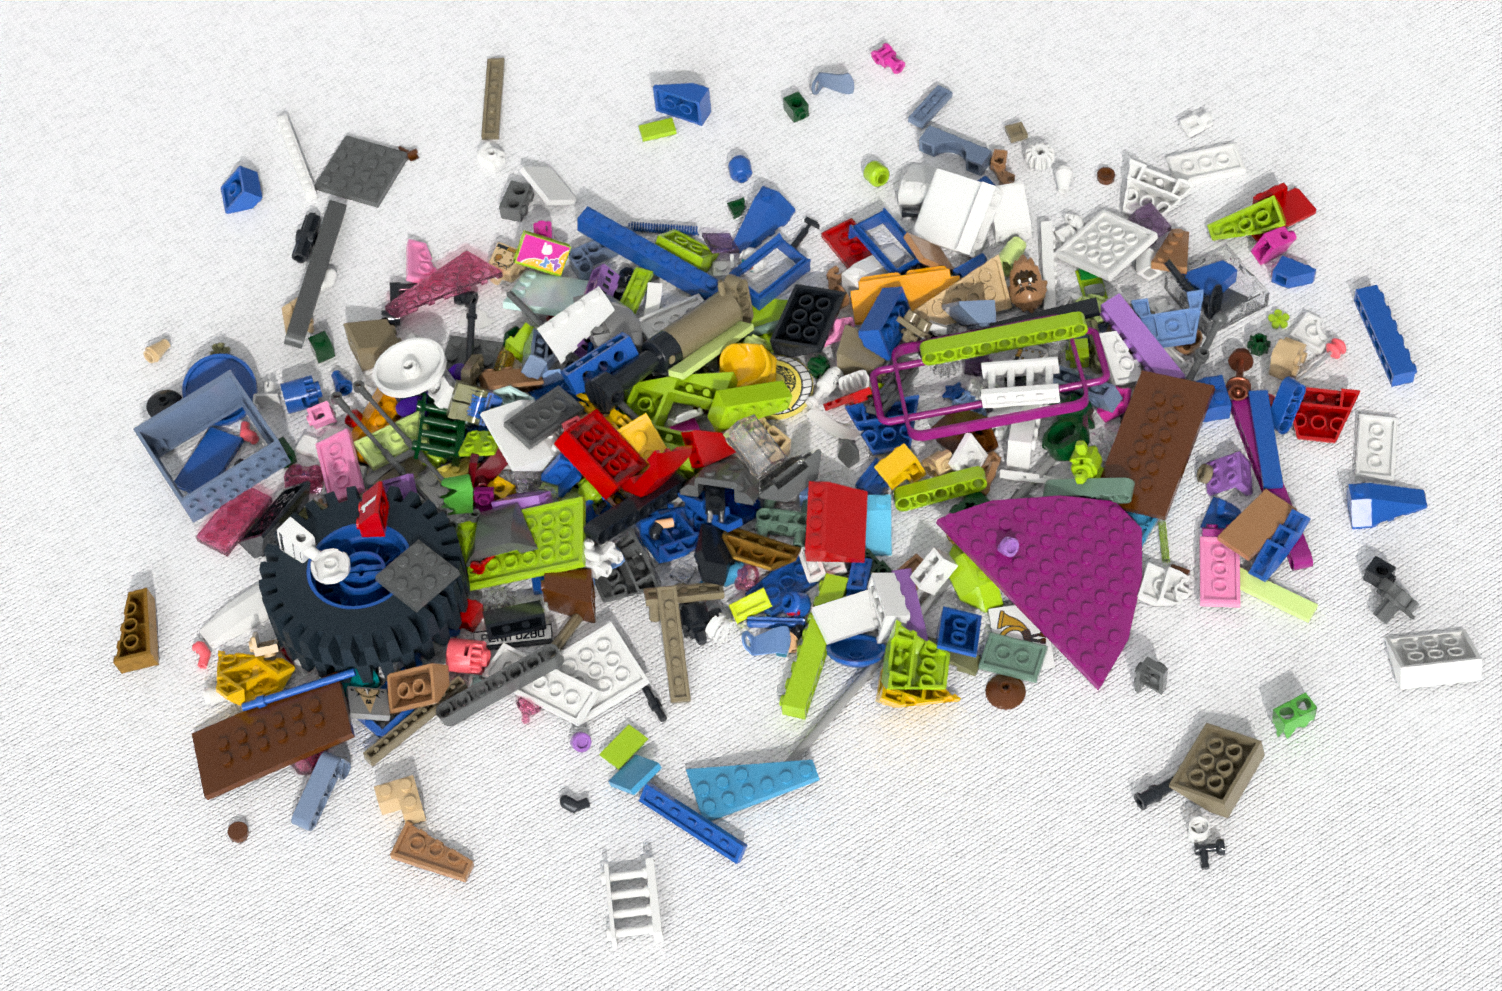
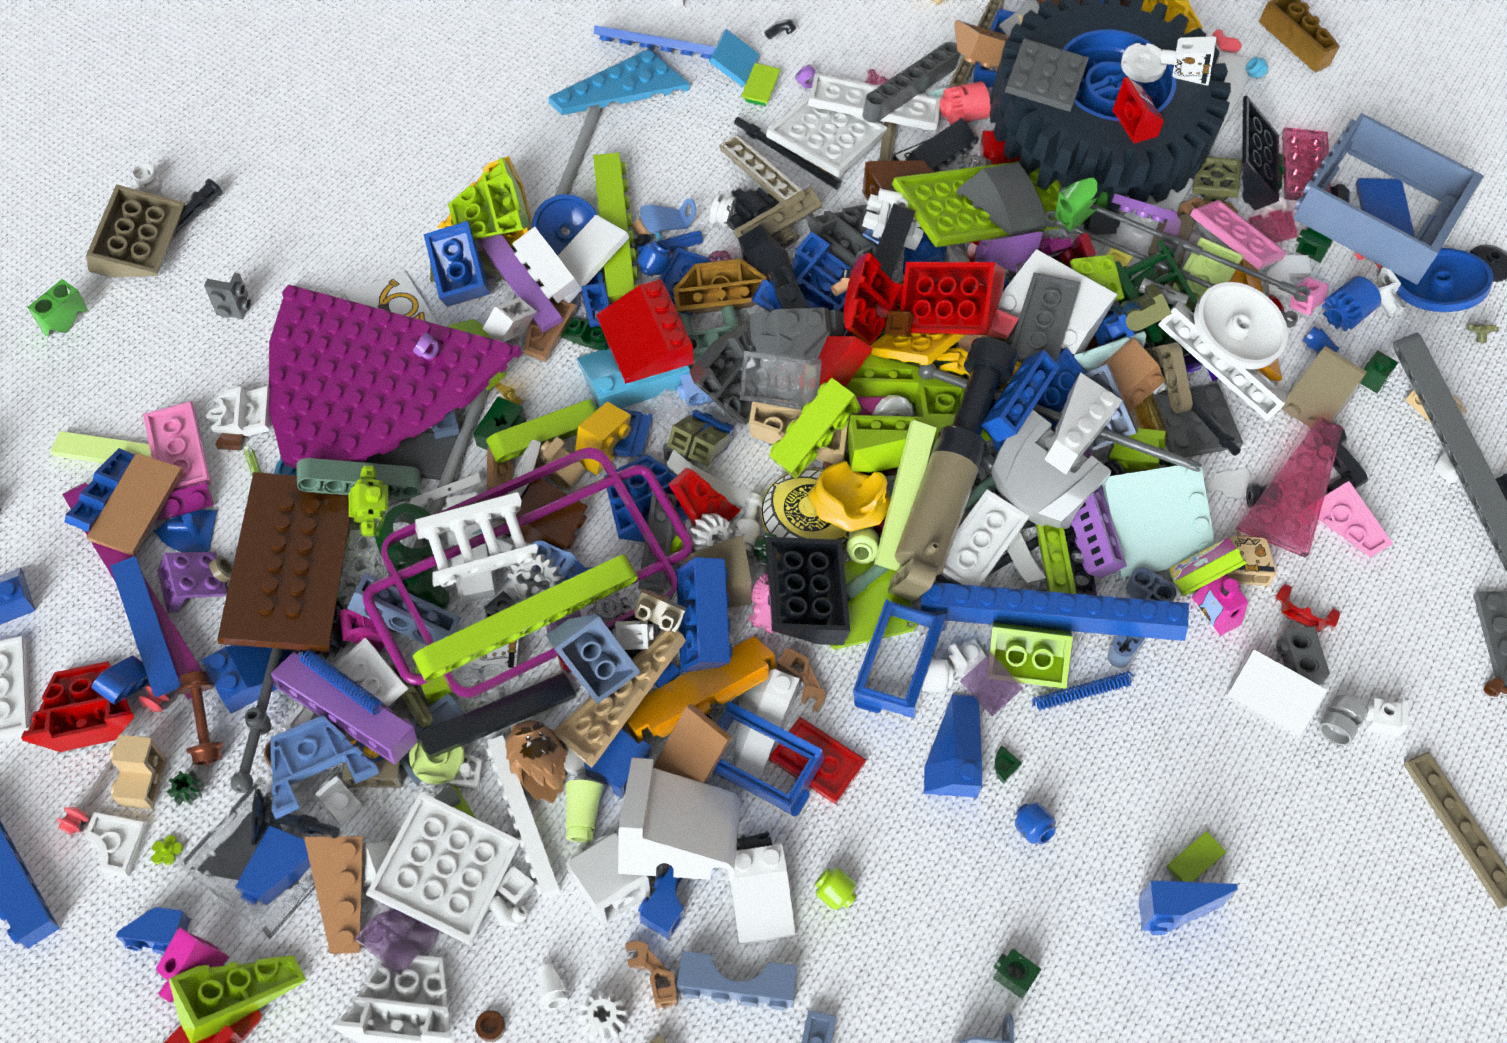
camera: 150 degrees right, 5 degrees up
(200, 615) = (1257, 67): none -> medium azure plate
(440, 418) = (1170, 295): none -> light grey pin
(504, 225) = (1304, 615): none -> red helmet
(523, 158) = (1343, 720): none -> light grey wheel
(641, 461) = (899, 323): none -> reddish brown tile
(750, 605) = (701, 248): neon yellow tile -> none
(804, 231) = (892, 751): black piece -> none
(832, 443) = (700, 437): none -> olive hips
(1004, 698) = (393, 257): reddish brown dish -> none
(1013, 657) = (394, 284): sand green tile -> none
(1151, 366) = (321, 665): none -> blue piece
(1203, 849) = (122, 172): black piece -> none

